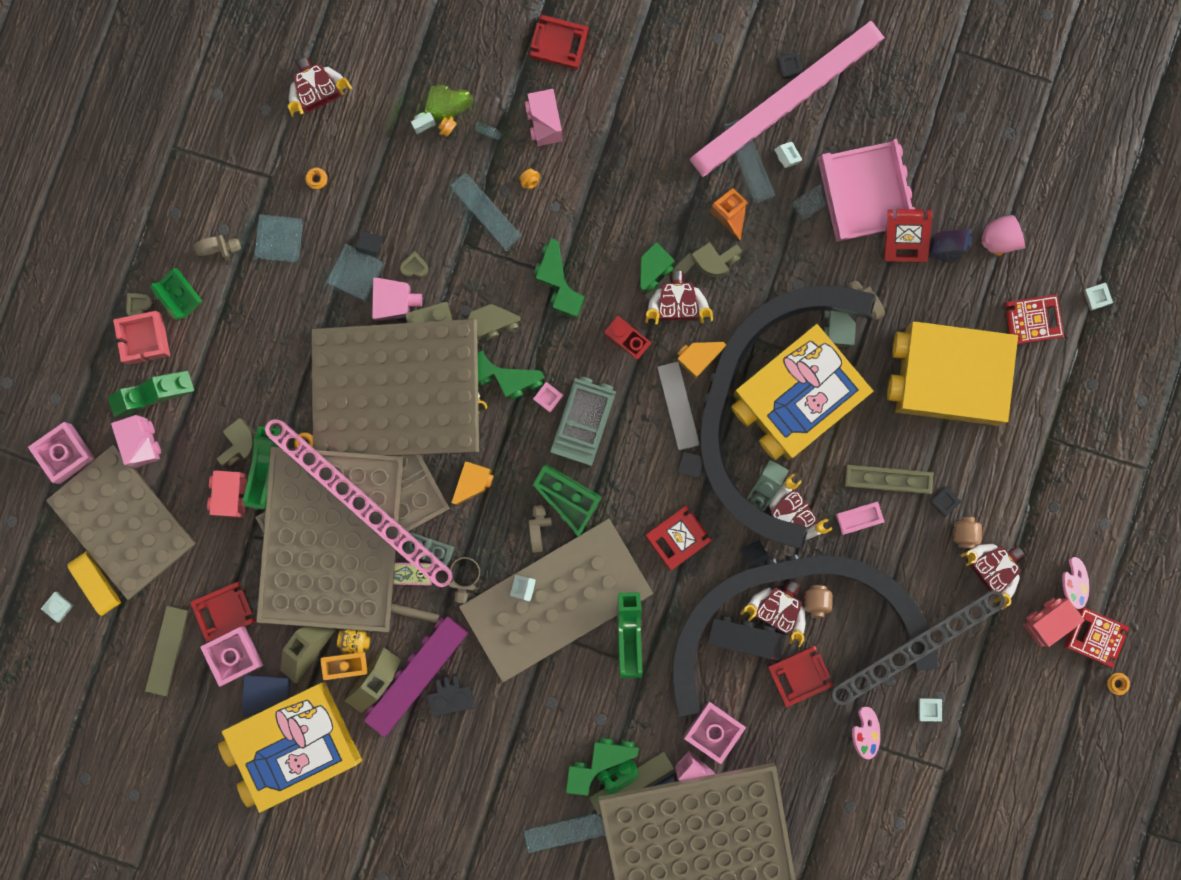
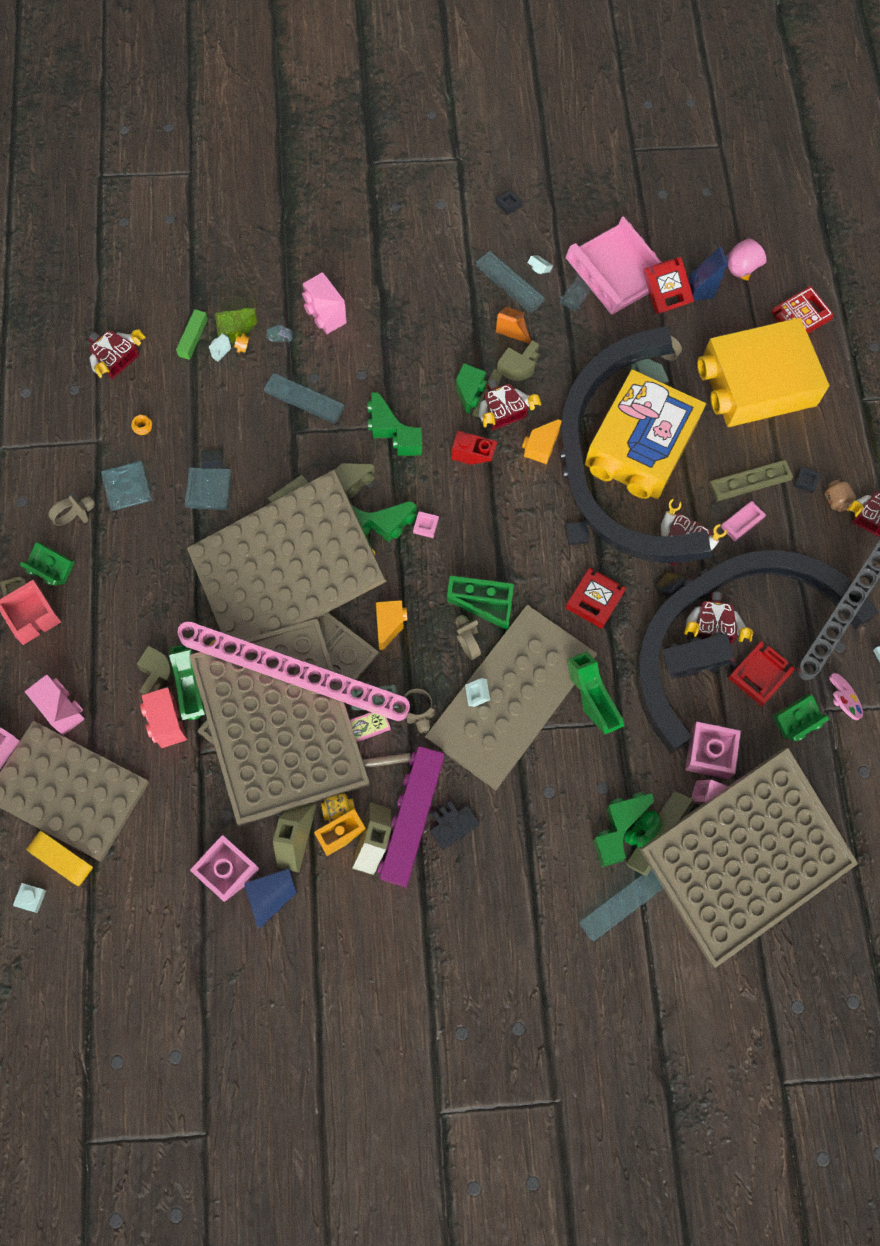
camera: 30 degrees left, 15 degrees down
(153, 391) = (56, 654): green arch -> none
(167, 651) = (157, 895): olive tile -> none
(227, 611) = (200, 830): red container -> none
(289, 748) = (316, 934): brick -> none
(392, 299) = (251, 493): bright pink torso -> none
(401, 95) = (192, 334): none -> bright green piece
(413, 266) = (259, 464): olive tile -> none
(529, 178) = (331, 358): light orange plate -> none
(555, 42) = (305, 250): red container -> none
(583, 421) = (466, 530): door -> none
(678, 406) = (543, 490): light grey tile -> none
(767, 485) = (652, 518): sand green slope -> none
(787, 98) = (517, 225): bright pink beam -> none
(812, 735) = (800, 718): none -> green bracket
(818, 601) = (745, 600): medium nougat head -> none
(1098, 296) = (842, 278): light aqua plate -> none

